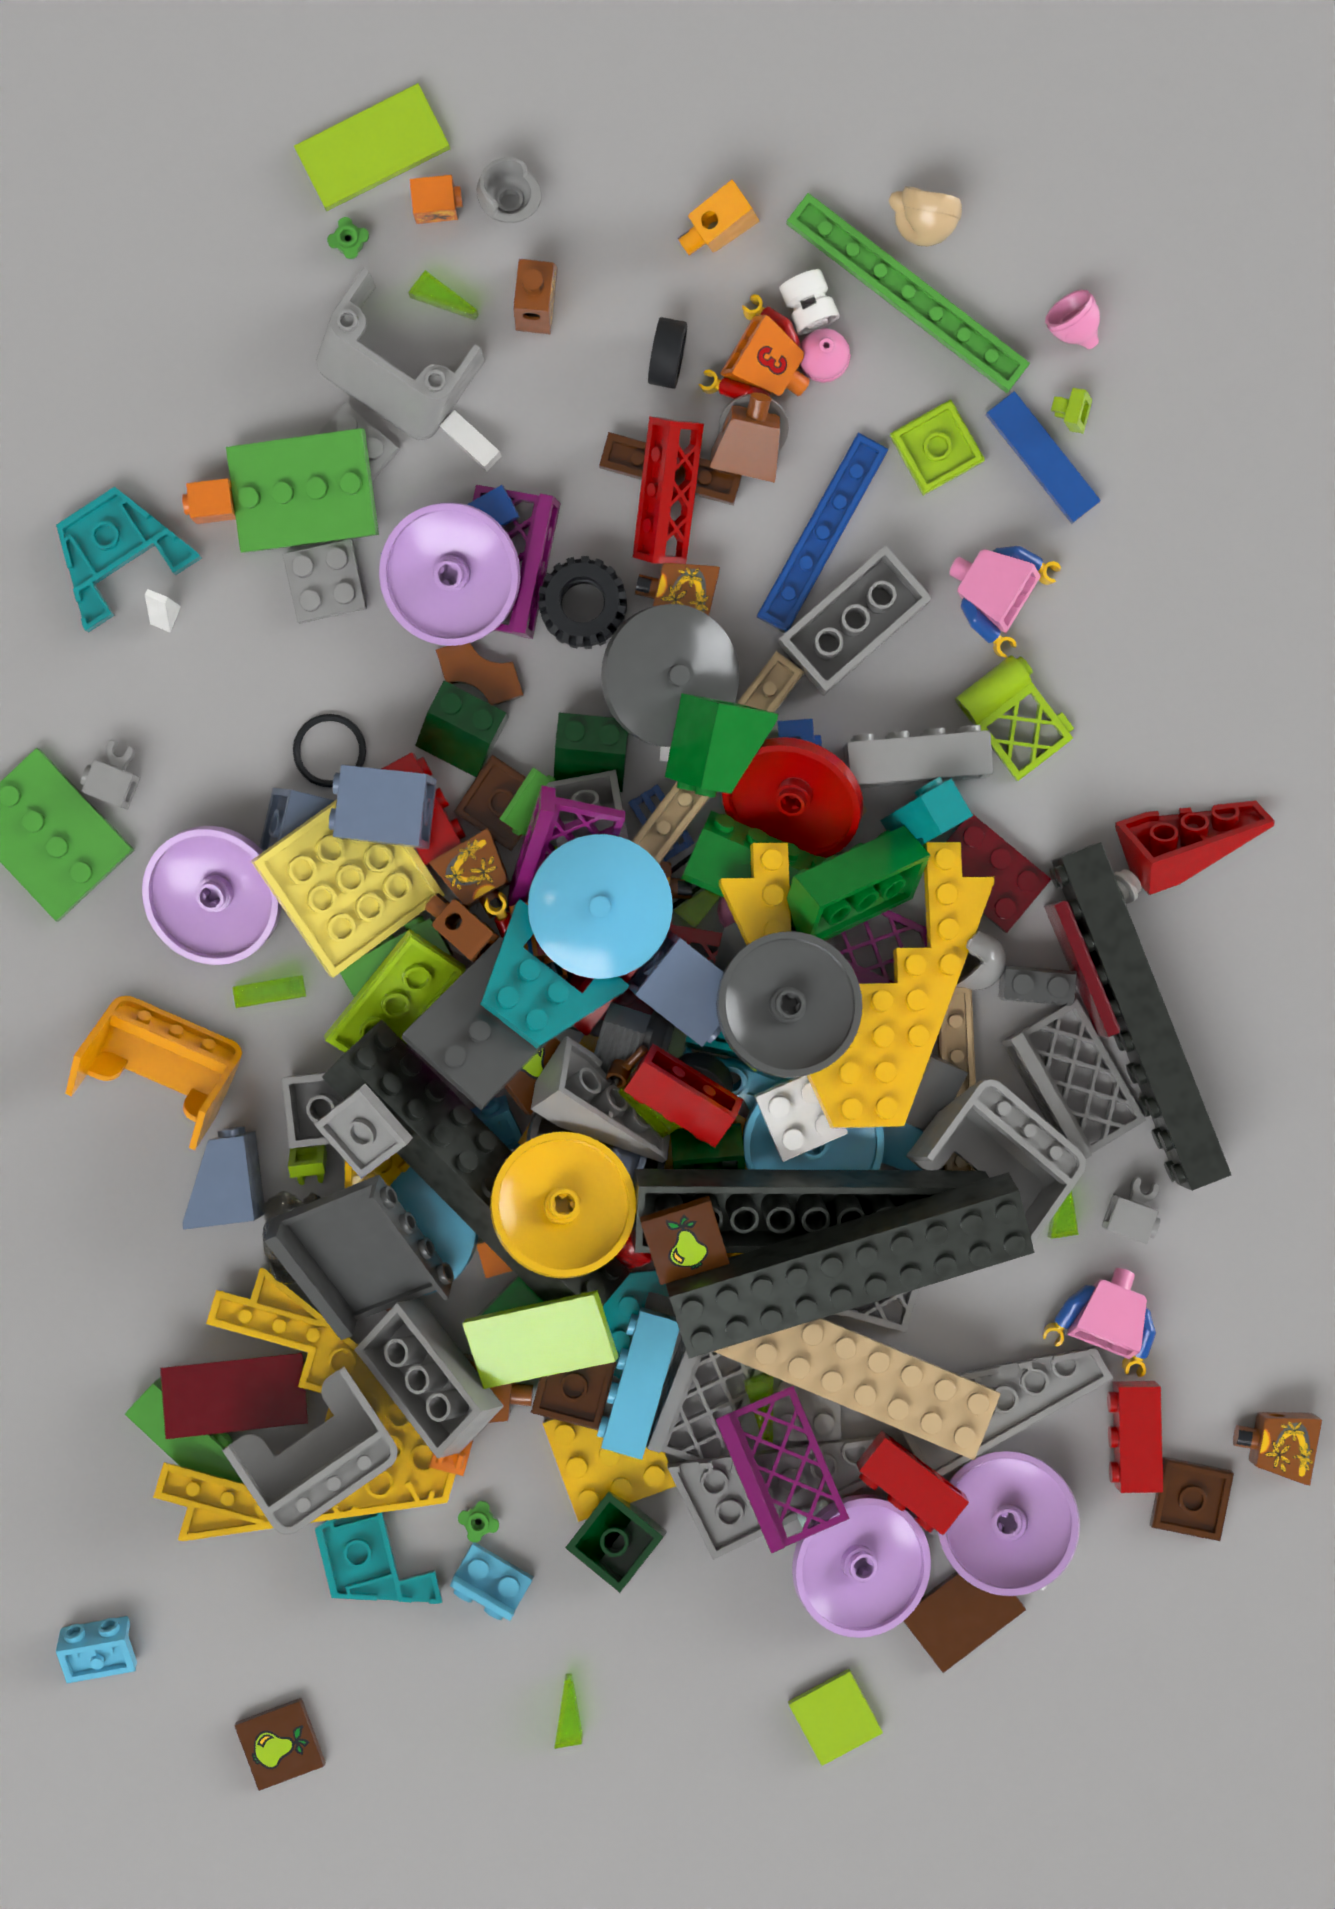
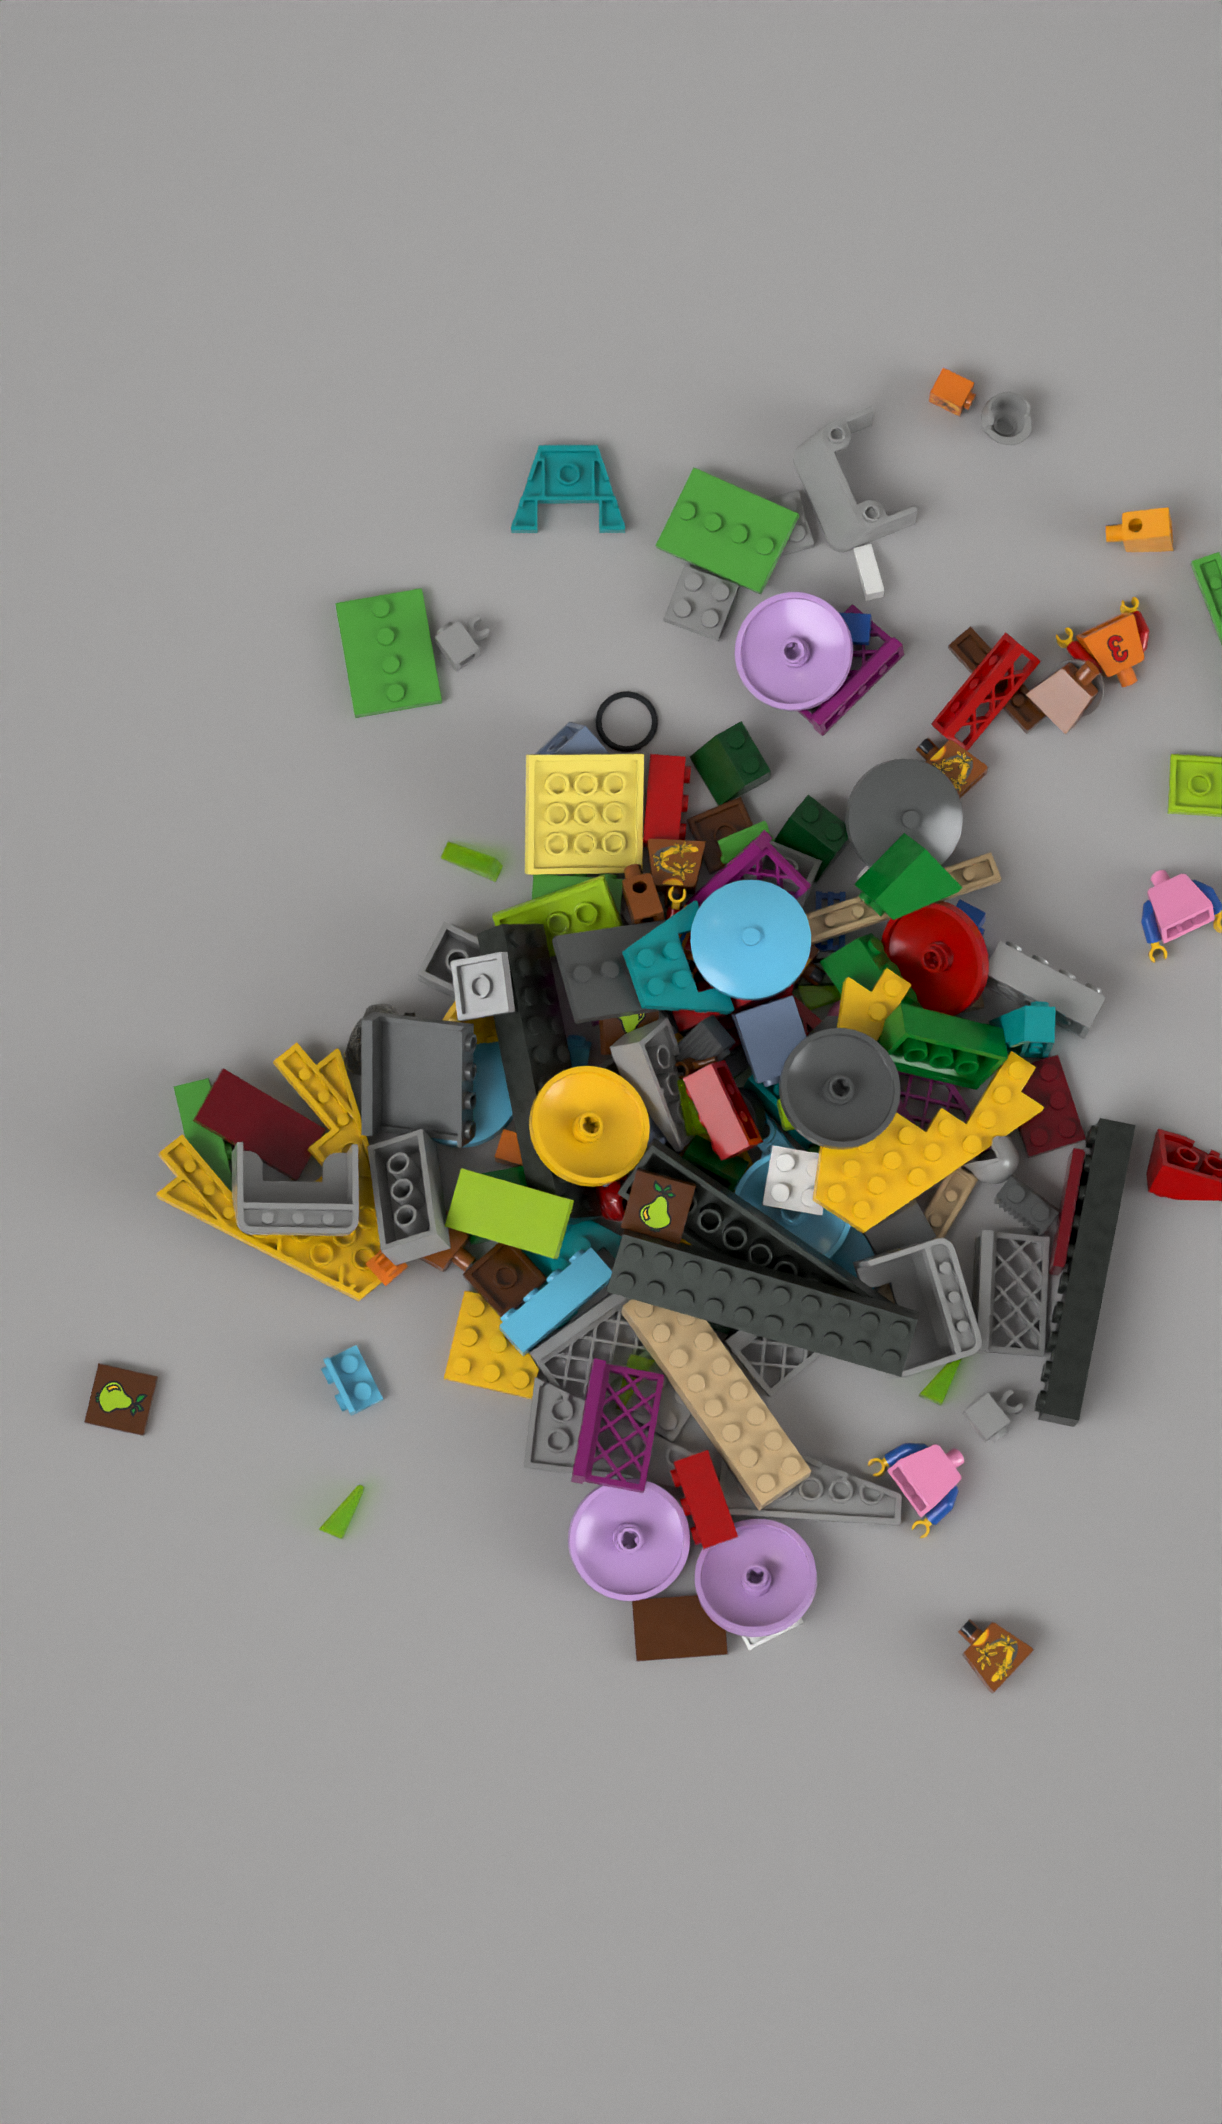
camera: 35 degrees right, 10 degrees down
(96, 1649) = (36, 1245): medium azure bracket -> none
(161, 610) = (574, 549): white piece -> none
(163, 1050) = (368, 853): light orange windscreen -> none
(209, 501) = (657, 497): orange brick -> none
(209, 896) = (476, 766): lavender dish -> none
(227, 1182) = (355, 970): sand blue slope -> none
(307, 1162) = (421, 995): lime tile -> none
(352, 247) = (881, 384): bright green plate -> none
(363, 1566) = (269, 1305): teal wing -> none
(372, 147) = (931, 330): lime tile -> none
(383, 806) = (643, 777): sand blue slope -> none
(435, 293) = (910, 456): clear neon green piece -> none
(480, 1511) = (372, 1339): bright green plate -> none
(494, 680) = (762, 723): dark orange tile -> none
(535, 295) = (980, 499): dark orange torso -> none
(575, 573) = (880, 708): black tyre -> none
(616, 1540) = (464, 1405): dark green slope -> none
(667, 352) = (1047, 598): black tyre -> none
(805, 290) = (1171, 626): white wheel -> none
(822, 533) = (1077, 793): blue tile -> none
(825, 355) = (1159, 671): bright pink helmet -> none
(835, 1717) = (536, 1643): lime tile -> none
(854, 620) = (1060, 865): light grey brick -> none
(1001, 691) = (1127, 983): lime piece -> none
(1128, 885) = (1136, 1177): white plate -> none
(1136, 1436) = (889, 1578): red brick -> none
(1192, 1499) = (901, 1654): reddish brown tile -> none

